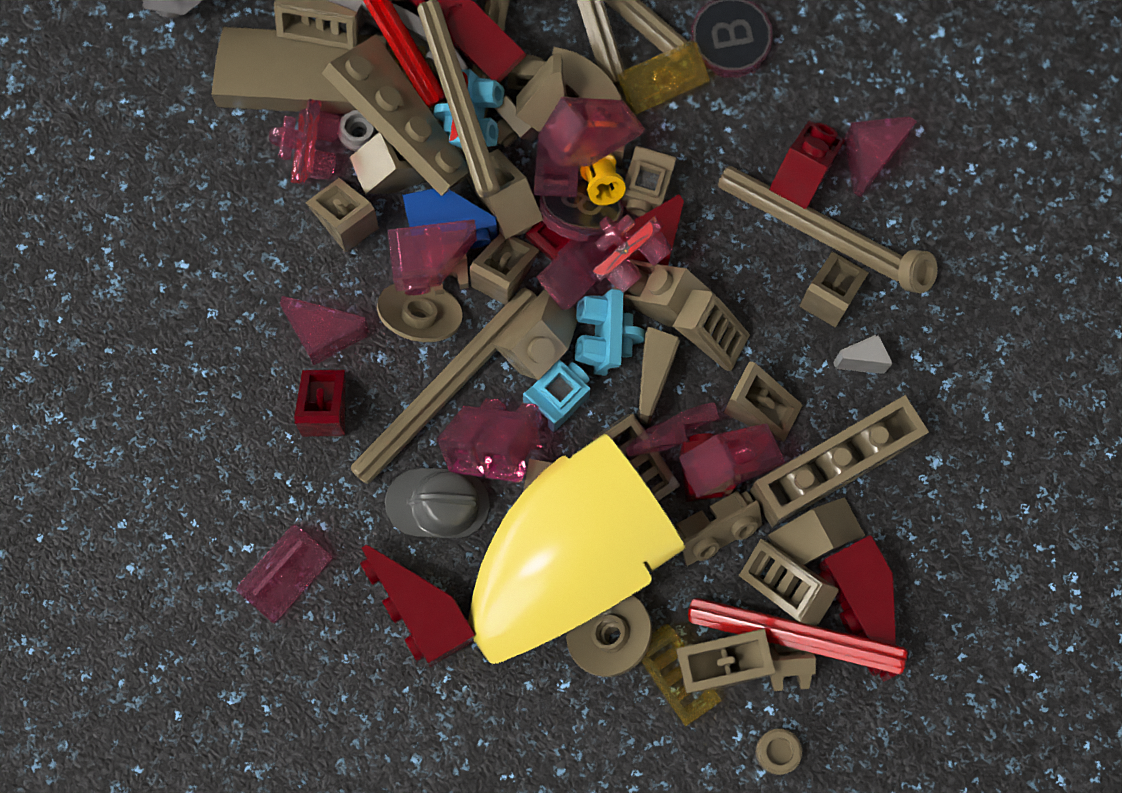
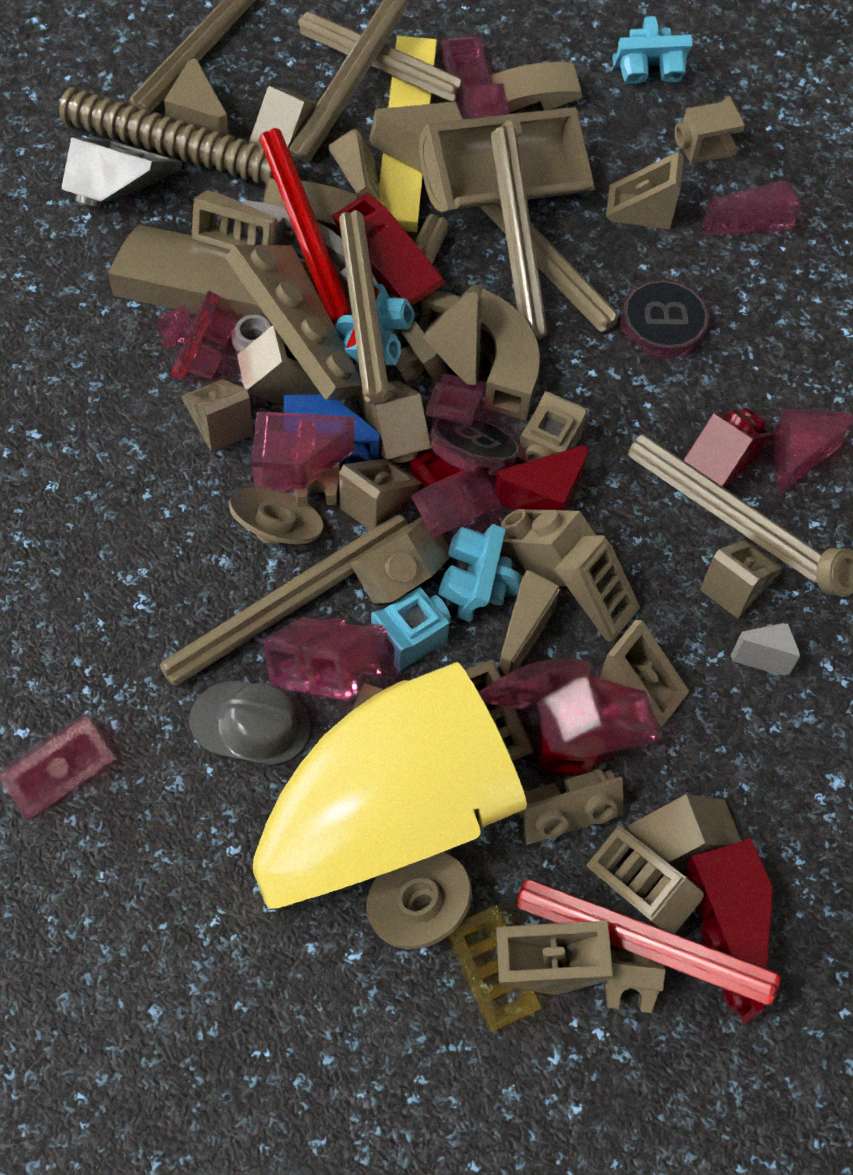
camera: 10 degrees right, 15 degrees down
(321, 403) = (143, 594): dark red slope -> none
(322, 329) = (167, 515): clear pink slope -> none
(428, 612) = (209, 833): dark red slope -> none
(588, 130) = (495, 359): clear pink slope -> none
(599, 181) = (505, 413): yellow bush -> none
(617, 266) = (538, 471): clear pink hips -> none
(663, 77) = (587, 340): clear yellow plate -> none
(778, 751) = (602, 1085): dark tan tile -> none
(838, 461) = (724, 751): dark tan brick -> none

